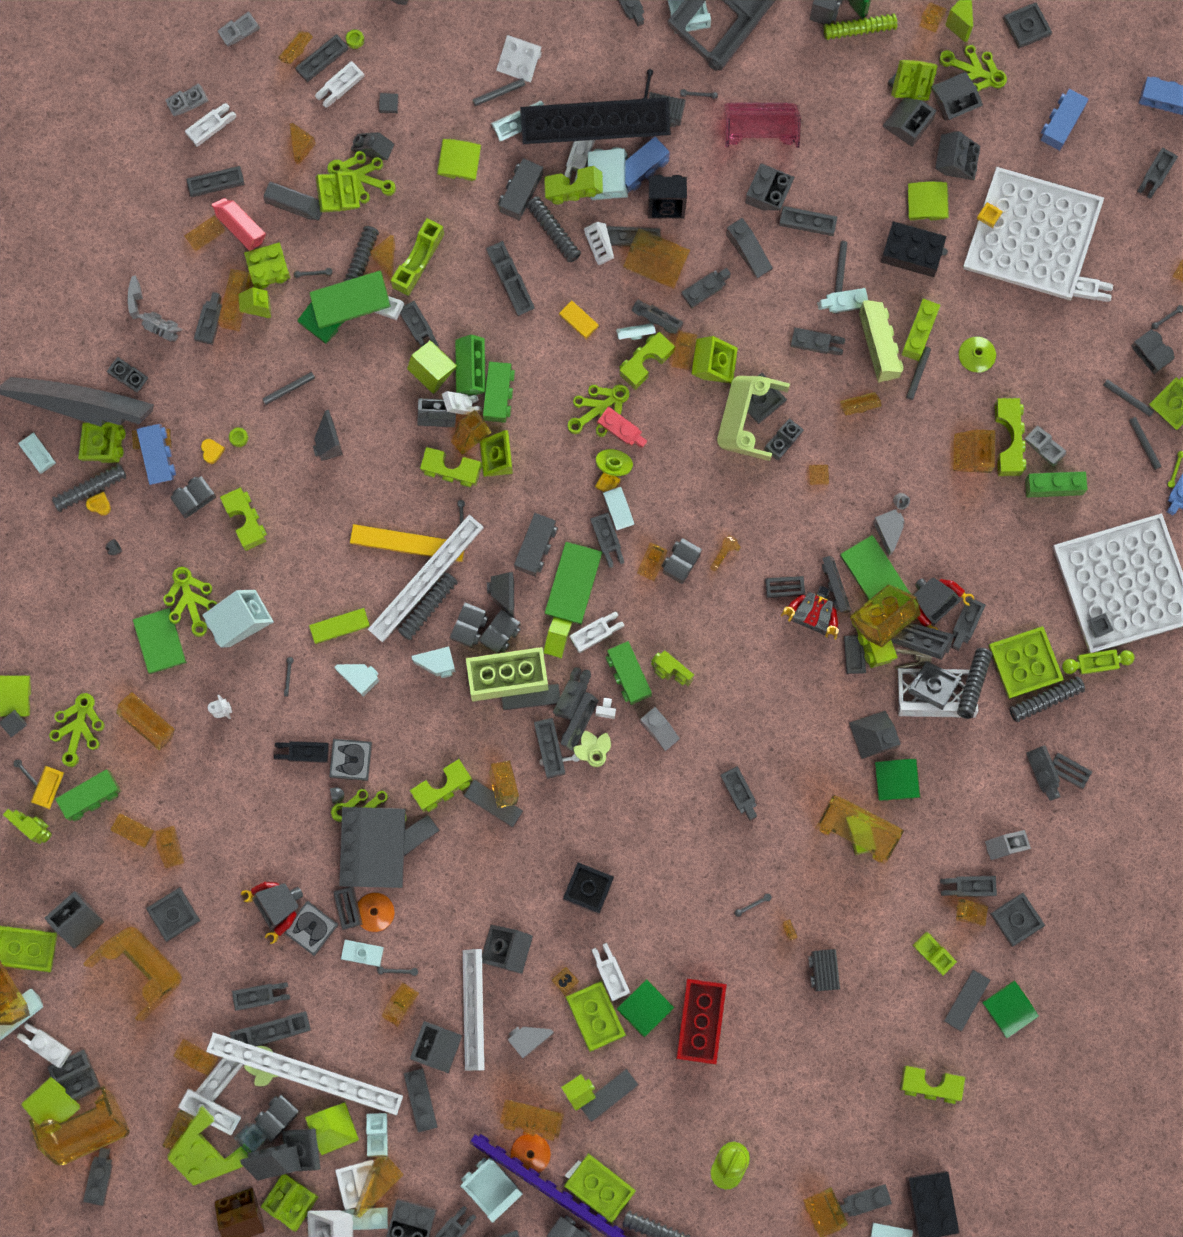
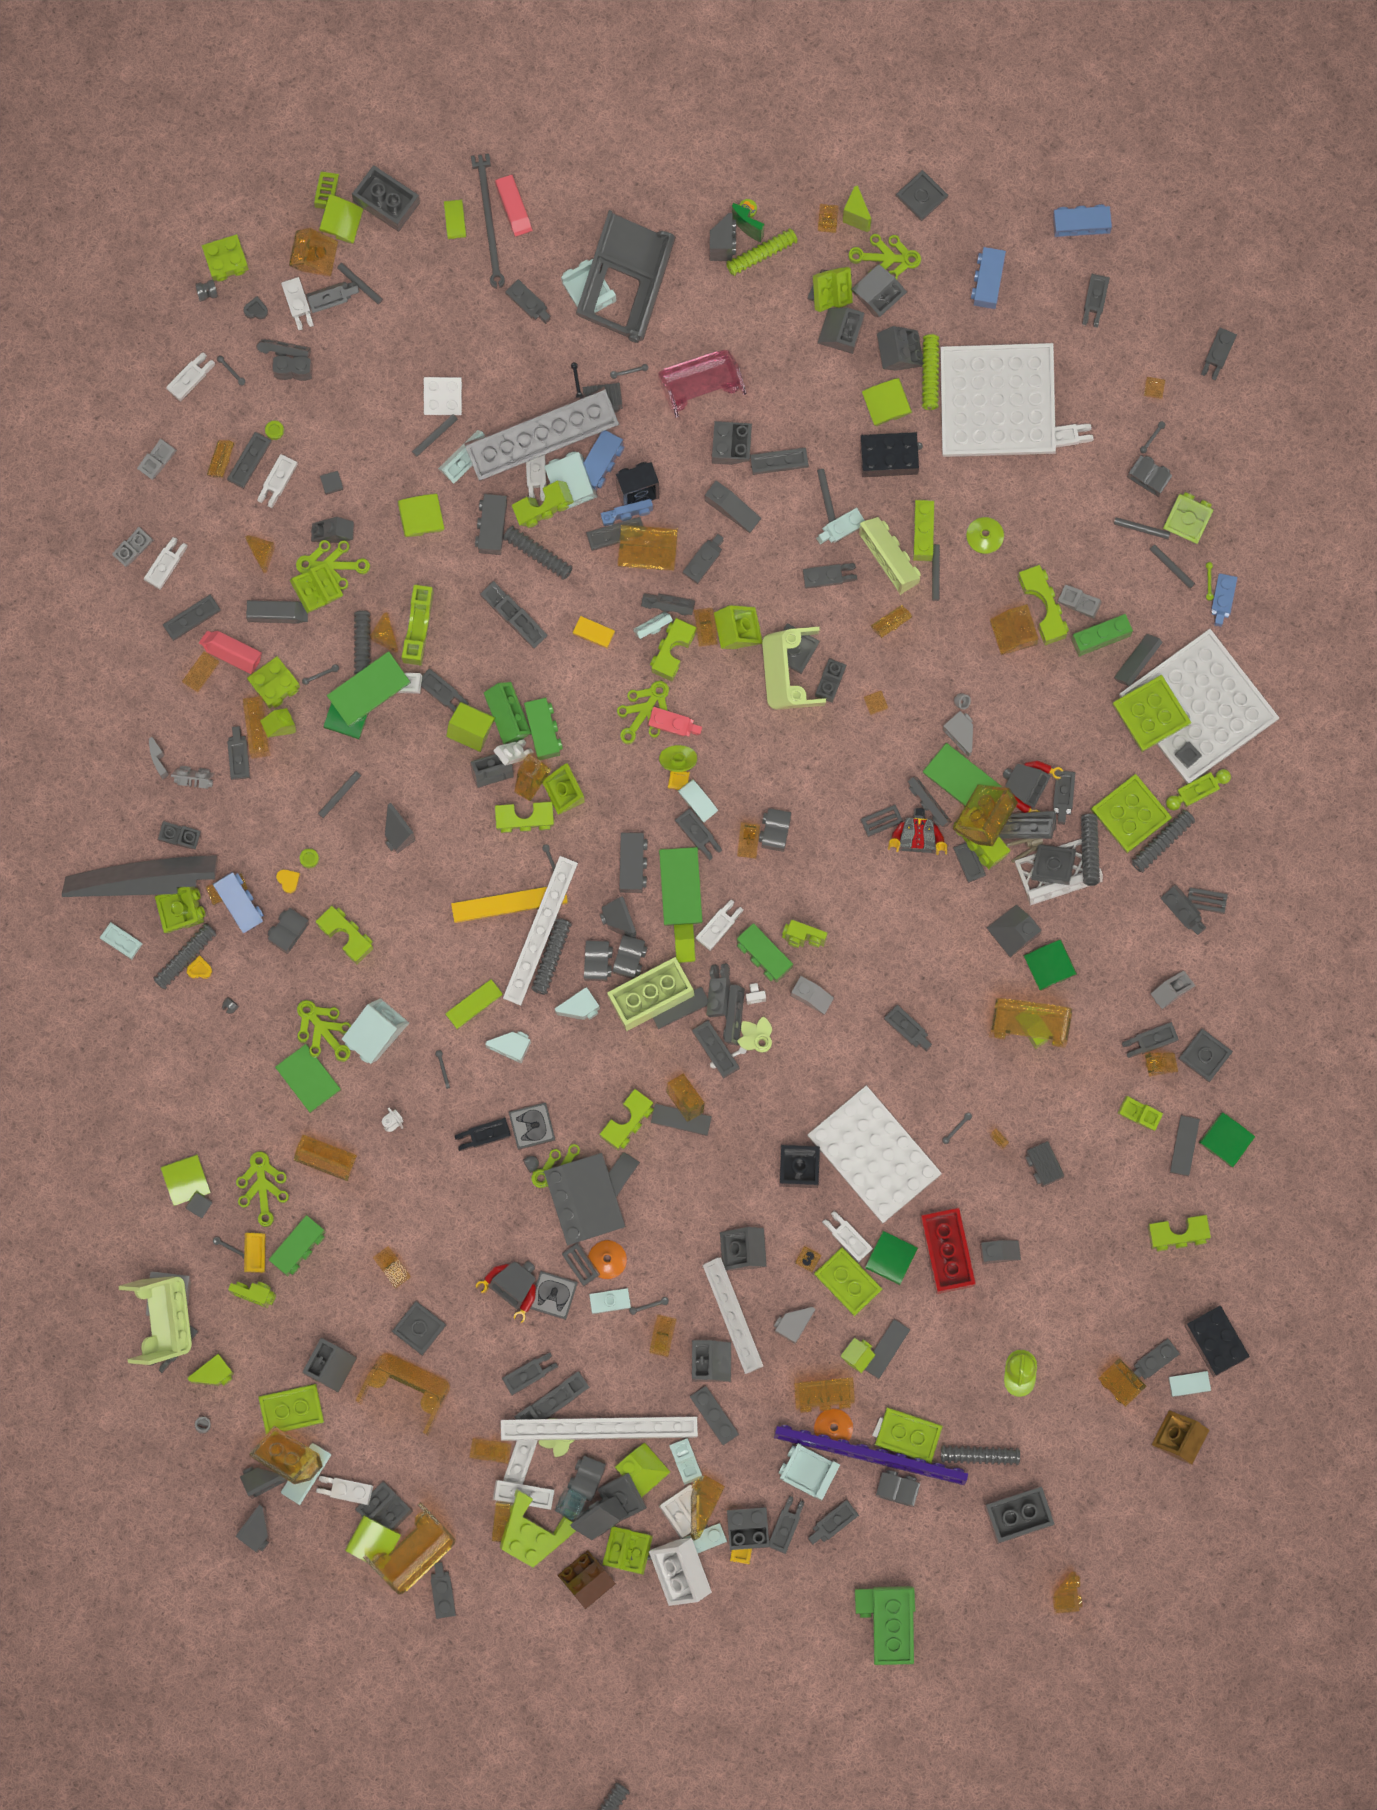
camera: 20 degrees left, 0 degrees up
(132, 830) = (351, 1264): clear yellow plate -> none
(596, 231) = (578, 547): white slope -> none
(650, 219) = (627, 511): none -> medium blue hinge
(665, 902) = (874, 1154): none -> white plate
(729, 544) = (815, 798): clear yellow piece -> none
(752, 1040) = (1000, 1251): none -> dark grey slope
(979, 186) = (930, 372): none -> lime piece
(989, 215) = (950, 396): yellow tile -> none
(1078, 574) = (1151, 713): none -> lime plate
(1082, 519) = (1138, 660): none -> dark grey tile

